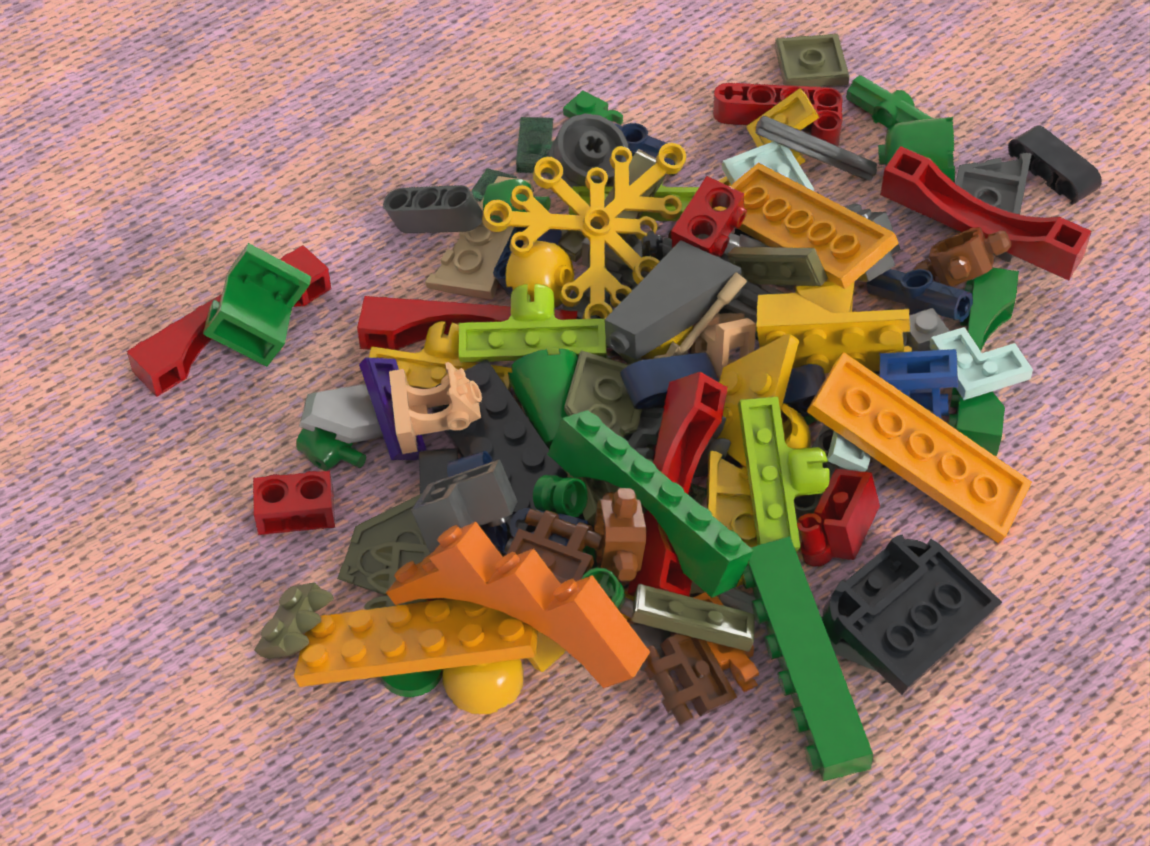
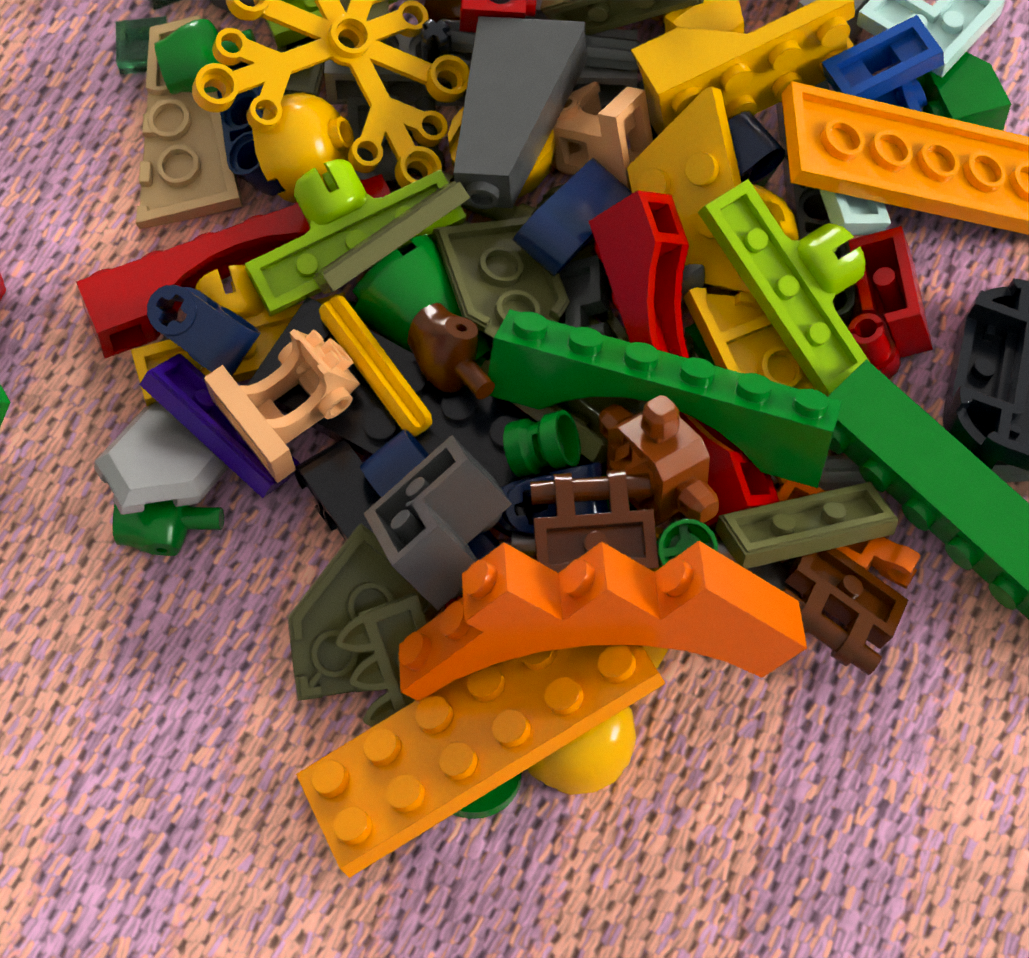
camera: 30 degrees left, 10 degrees up
(293, 502) = (178, 632): red brick -> none
(294, 616) = (279, 789): olive plate -> none
(412, 348) = (209, 331): none -> dark blue piece
(433, 209) = (88, 113): dark grey beam -> none
(496, 411) = (375, 365): none -> yellow axle
(539, 419) = (447, 351): none -> reddish brown piece
(551, 341) = (390, 237): none -> olive tile
(724, 297) = (553, 173): tan piece -> none

